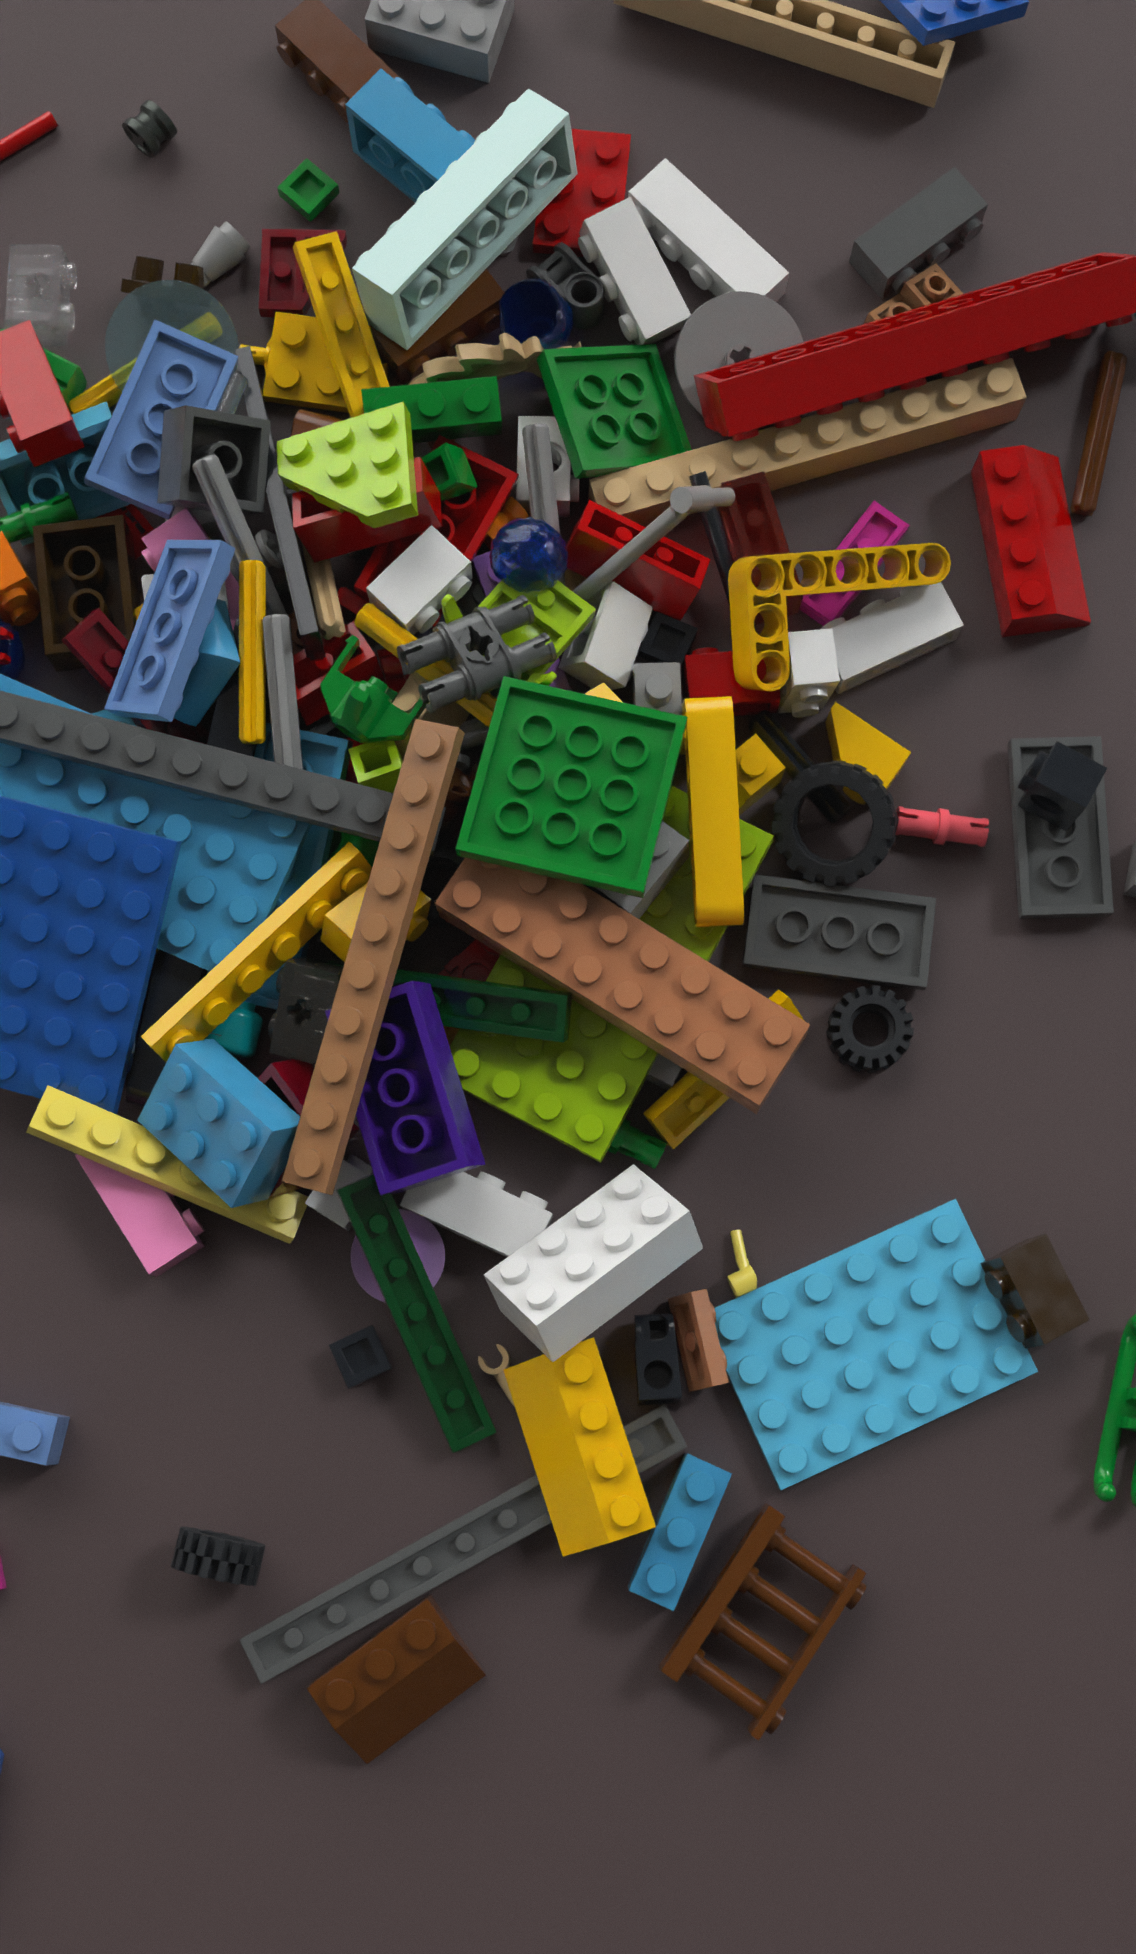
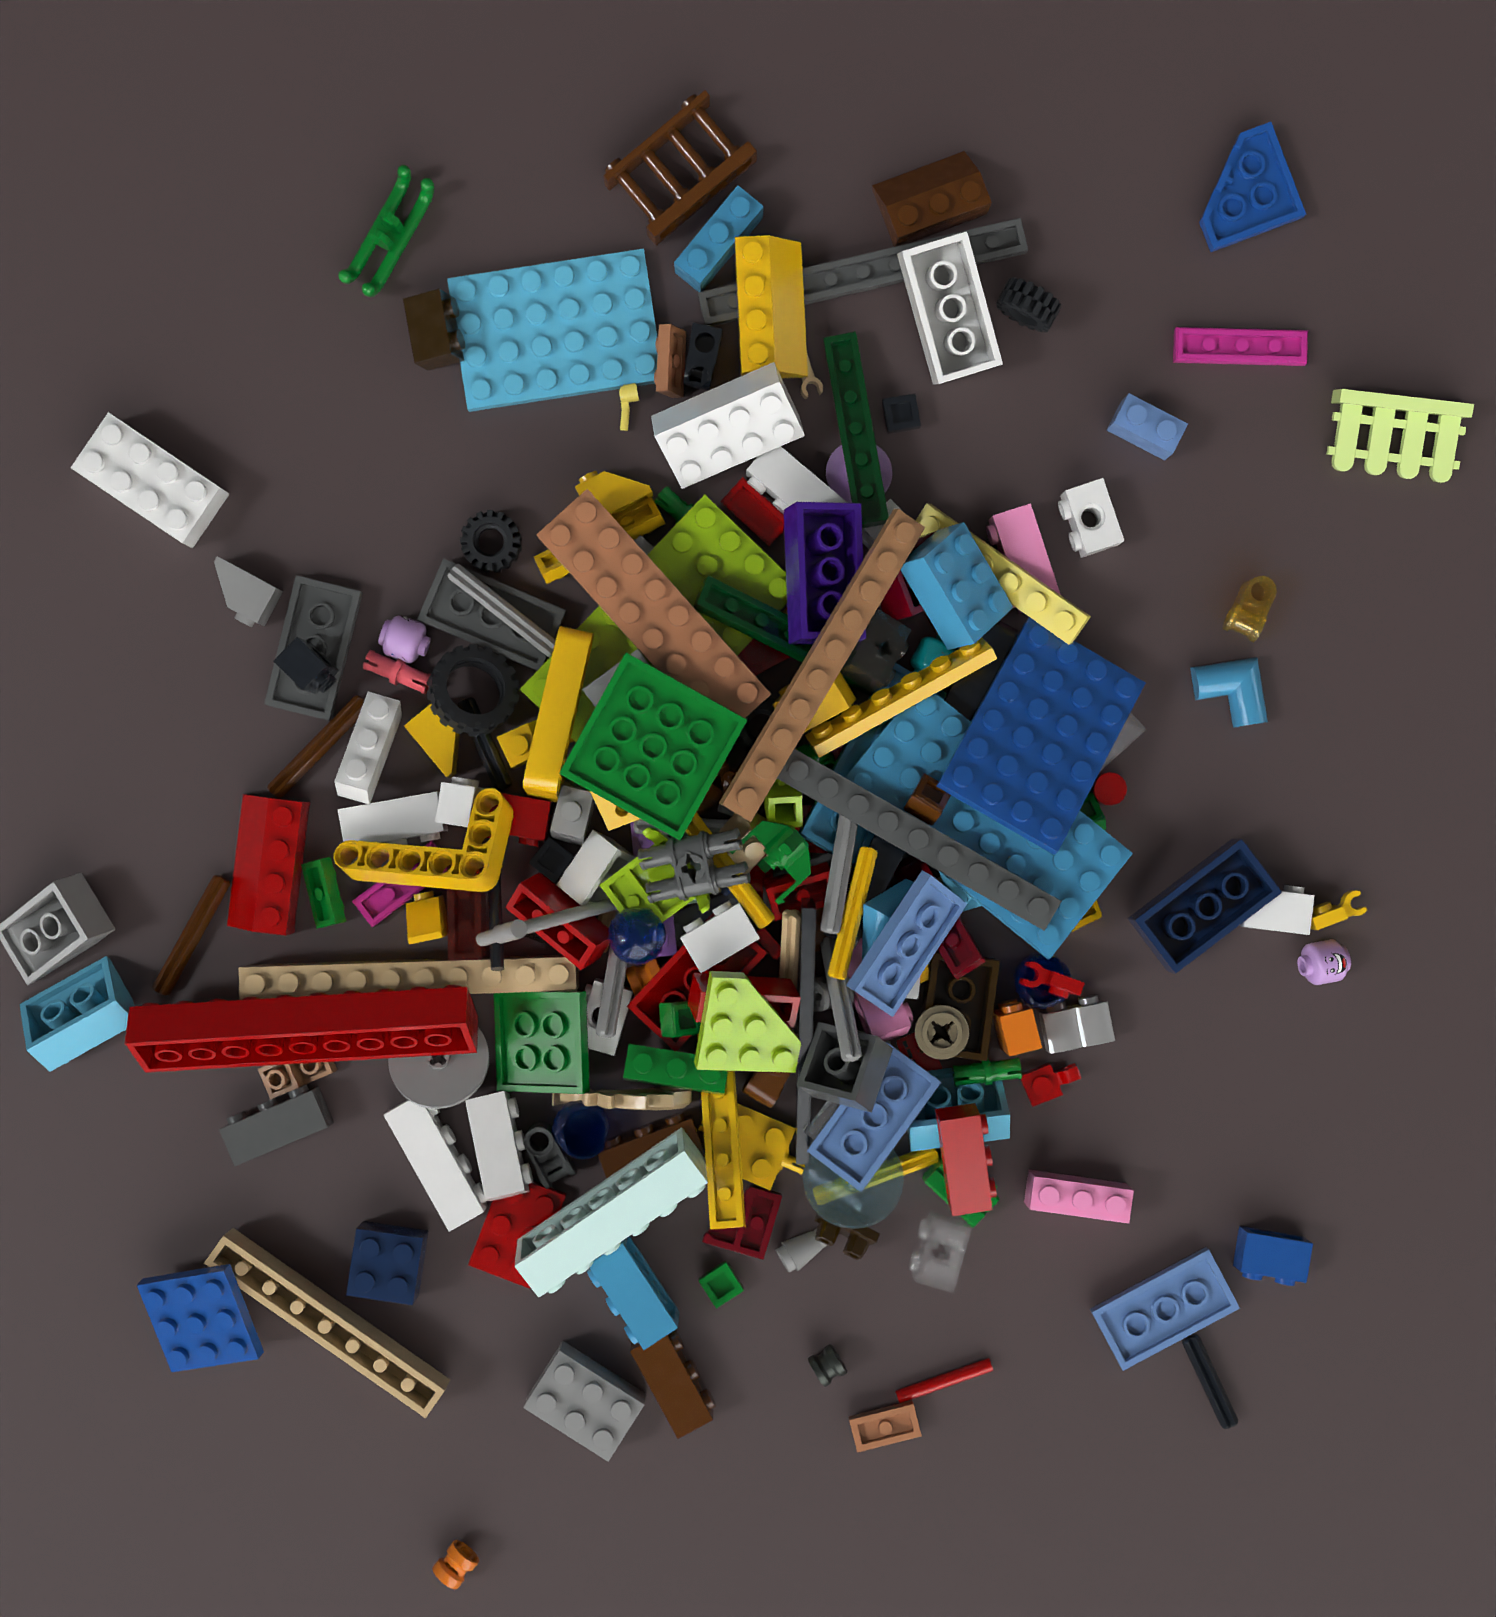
camera: 155 degrees left, 10 degrees up
(36, 1269) = (1094, 499): none -> white brick
(60, 78) = (885, 1426): none -> nougat plate
(97, 523) = (957, 1032): none -> dark tan gear
(189, 821) = (927, 800): none -> reddish brown slope
(327, 1517) = (950, 308): none -> white brick
(526, 1167) = (754, 512): none -> red tile
(728, 1136) = (614, 491): none -> yellow slope
(731, 109) = (387, 1263): none -> dark blue brick
(807, 515) = (426, 918): none -> yellow slope
(827, 937) = (502, 609): none -> light grey axle
(945, 870) = (404, 639): none -> lavender head
(948, 523) = (323, 892): none -> green plate
(948, 711) = (368, 748): none -> white brick
(1013, 706) = (316, 748): none -> reddish brown axle

